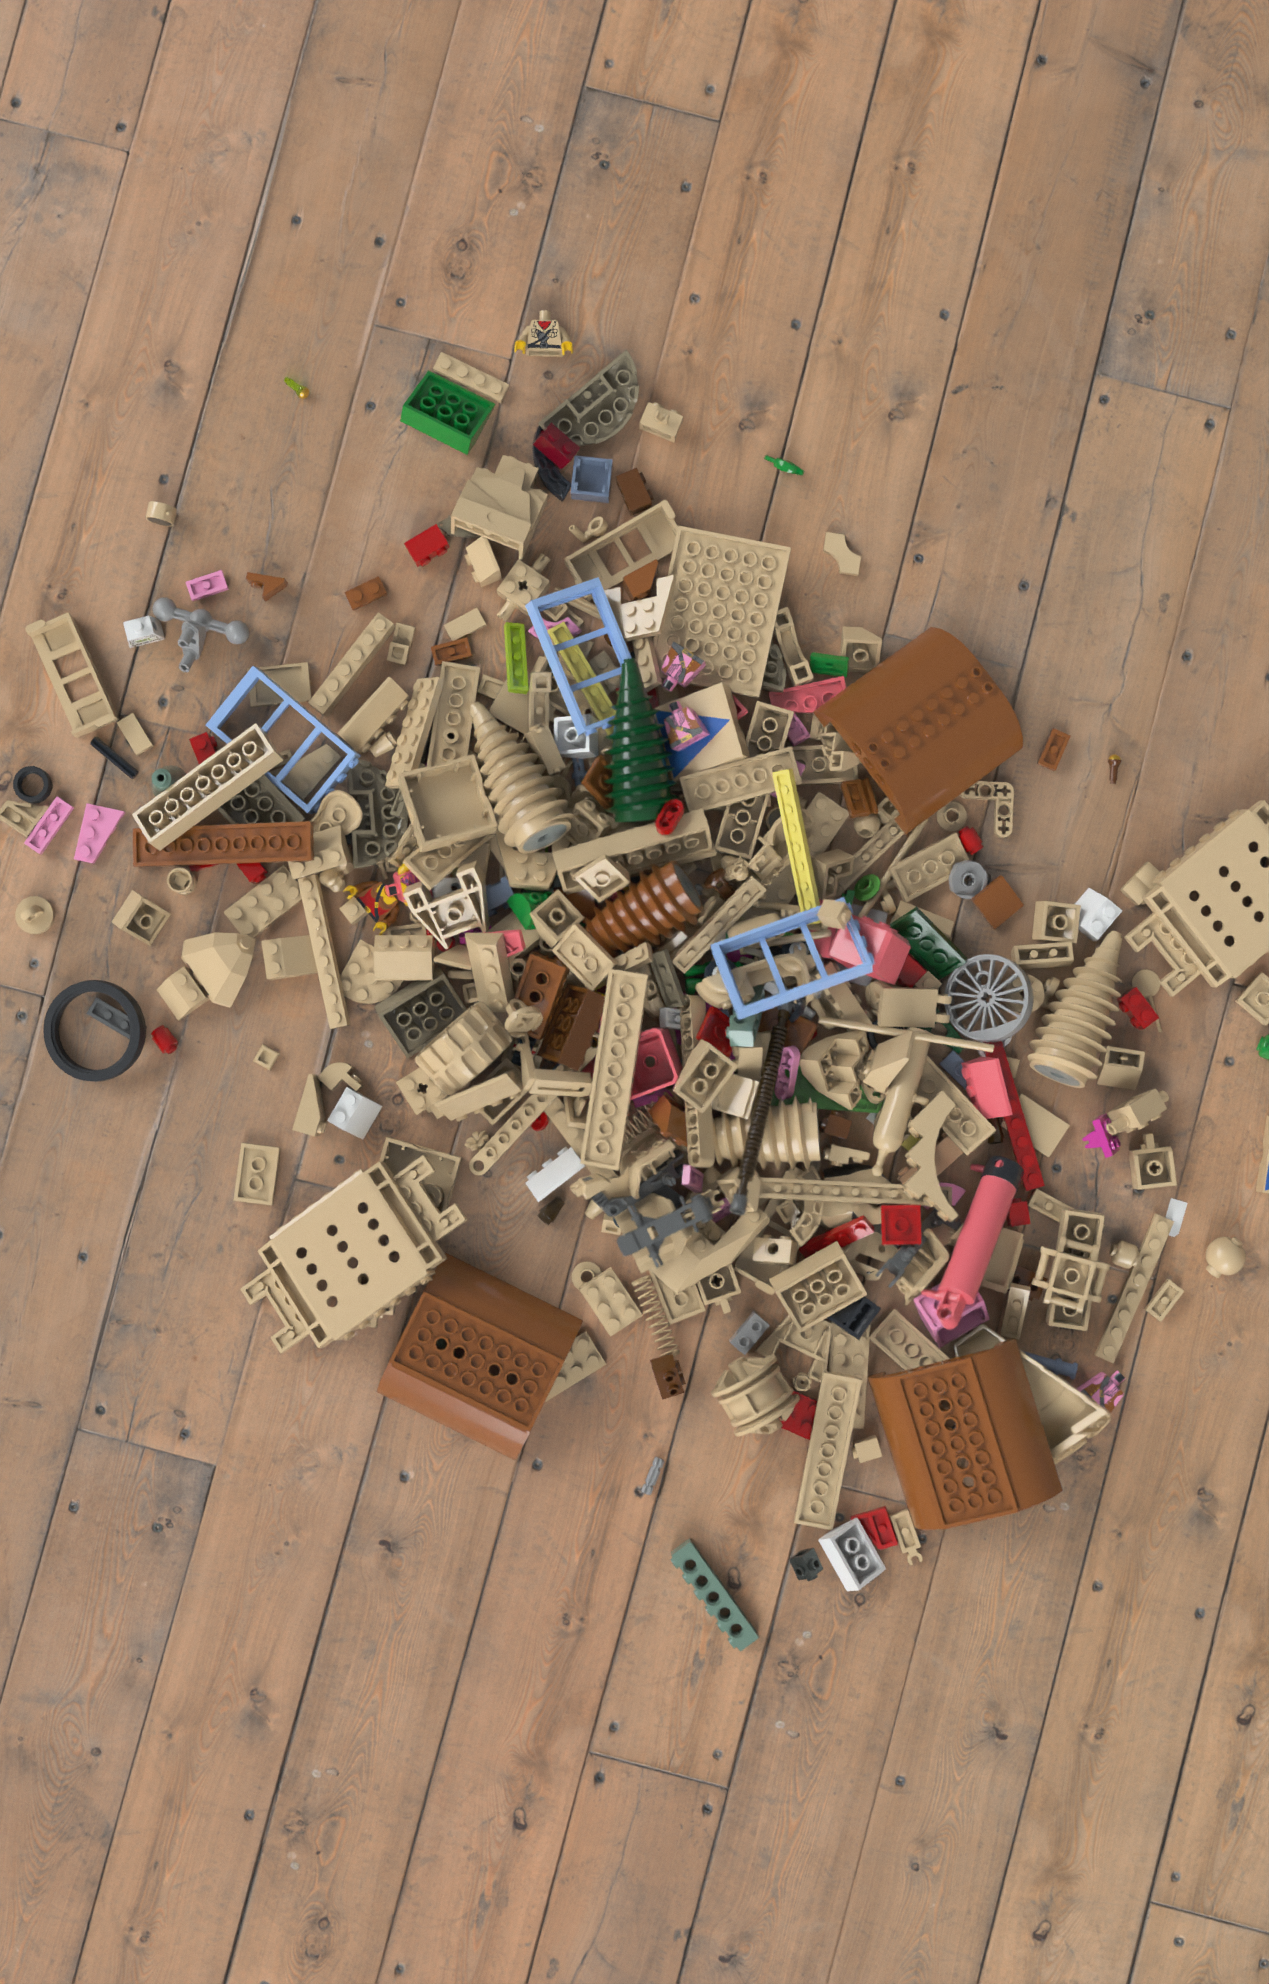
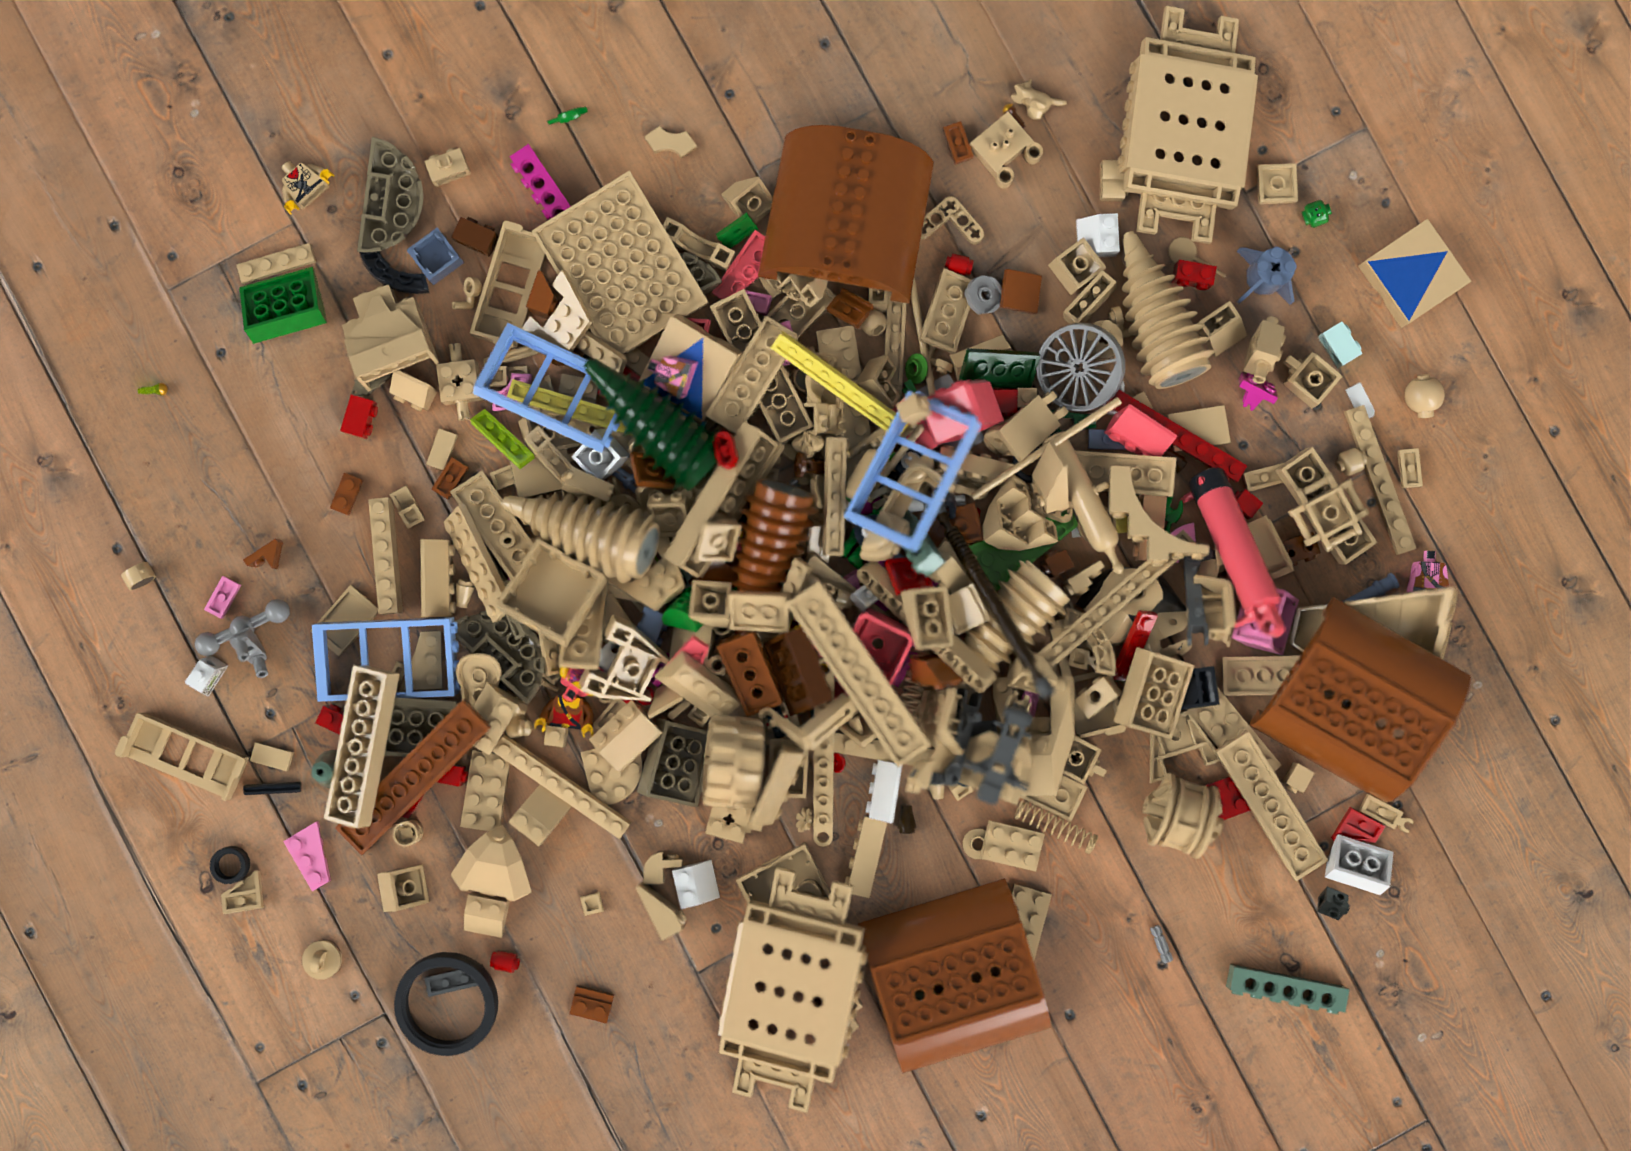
camera: 40 degrees left, 0 degrees up
(49, 825) = (270, 883): bright pink plate -> none
(198, 1130) = (591, 1004): none -> dark orange plate
(257, 1174) = (665, 996): tan plate -> none
(497, 1209) = (866, 857): none -> tan brick
(522, 1020) = (756, 701): tan tile -> none
(556, 446) = (386, 255): dark red brick -> none
(667, 979) = (835, 571): dark tan plate -> none
(667, 1376) = (1104, 861): reddish brown brick -> none
(680, 667) = (630, 333): torso -> none
(692, 1179) = (989, 700): bright pink plate -> none
(725, 468) = (526, 157): none -> dark pink brick
(749, 1332) = (1134, 773): light grey brick -> none
(785, 1086) = (985, 549): bright pink beam -> none
(802, 1387) = (1205, 778): tan plate -> none
(901, 1224) = (1172, 591): red plate -> none
(952, 825) = (932, 268): tan piece -> none
(954, 1169) = (1171, 515): none -> green hand
(1015, 1311) = (1311, 576): tan plate -> none
(1084, 781) = (1001, 145): none -> tan piece
(1140, 773) = (1036, 101): none -> tan animal
(1194, 1058) = (1269, 272): none -> sand blue brick
(1198, 1161) = (1340, 344): none -> light aqua brick

